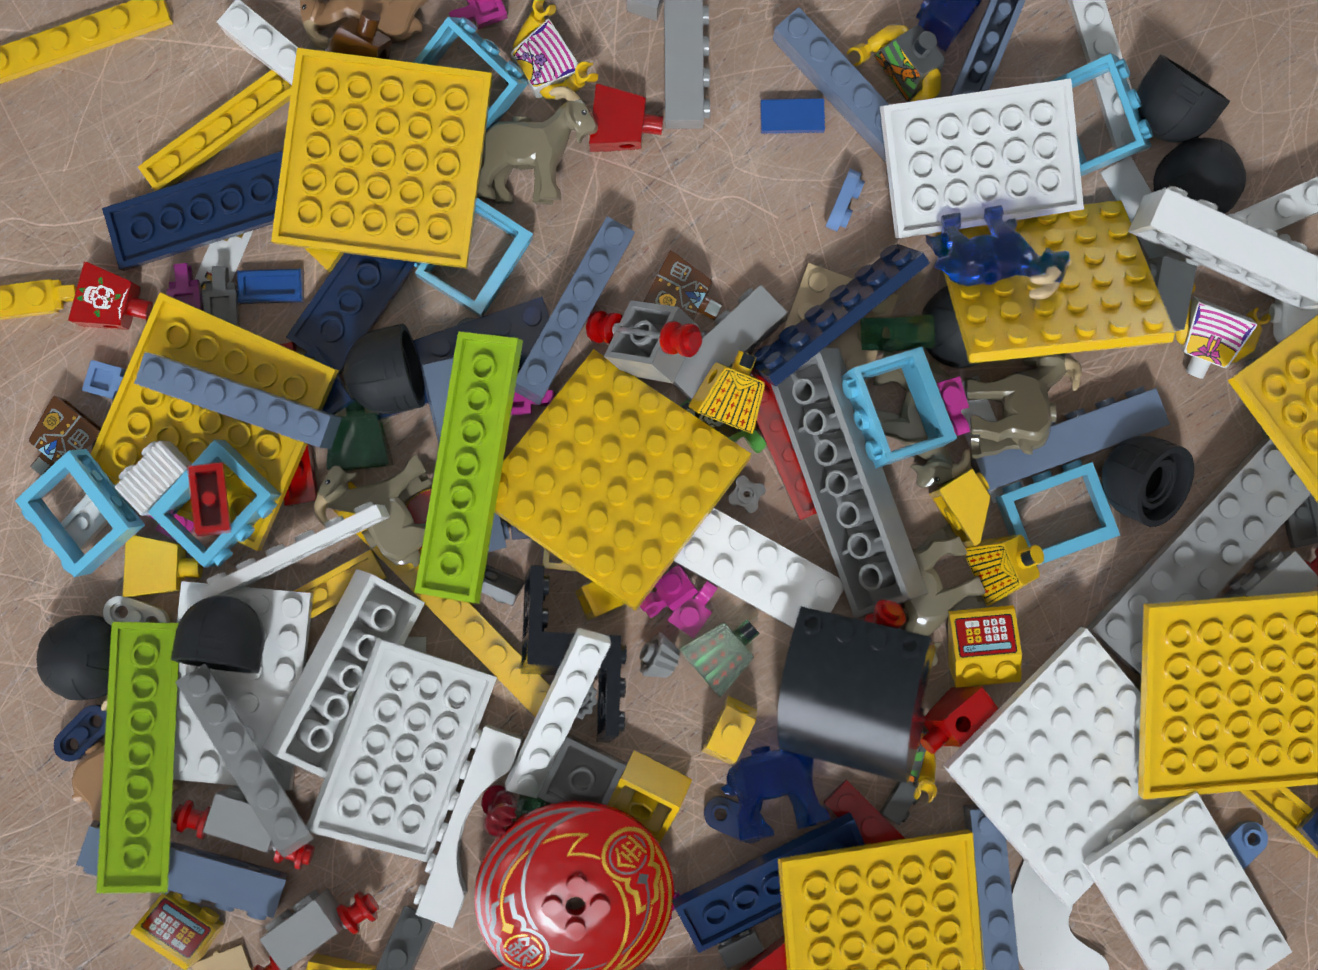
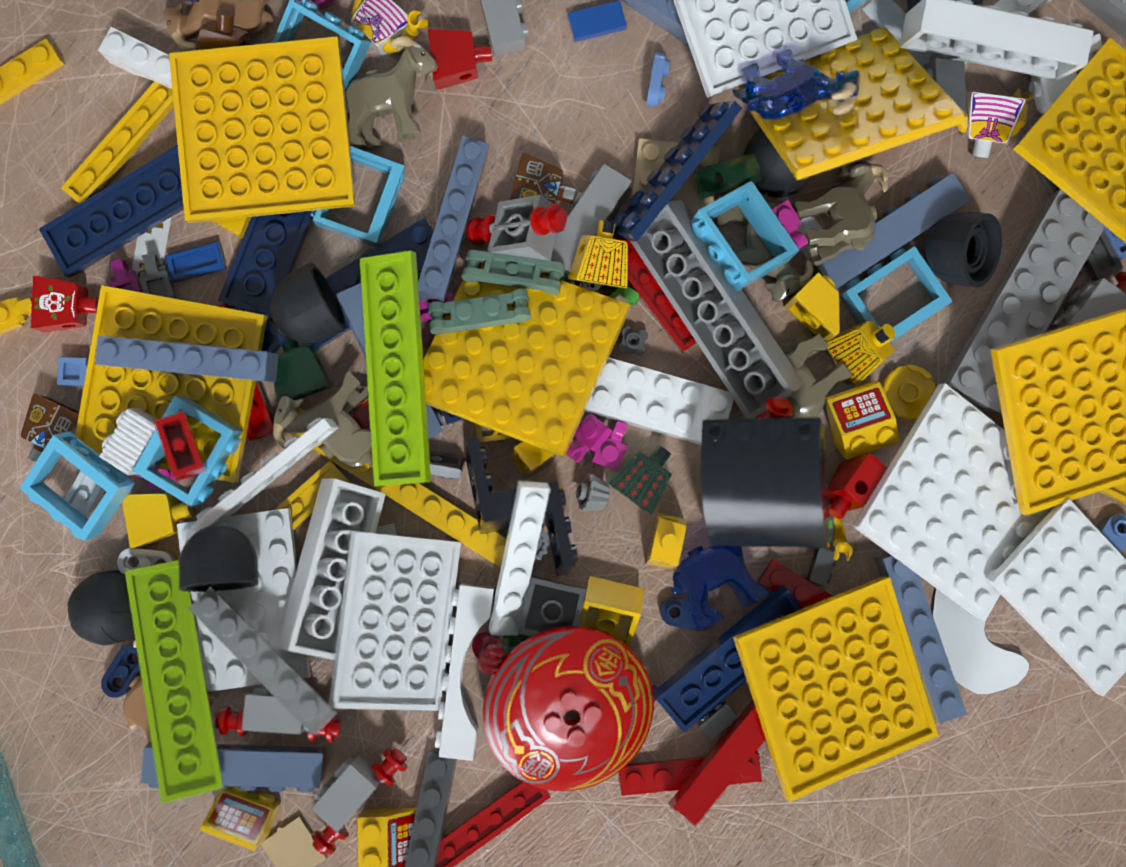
camera: 10 degrees left, 0 degrees up
(578, 423) = (479, 312): none -> sand green plate
(628, 384) = (513, 271): none -> sand green plate
(1046, 624) = (908, 390): none -> yellow tile

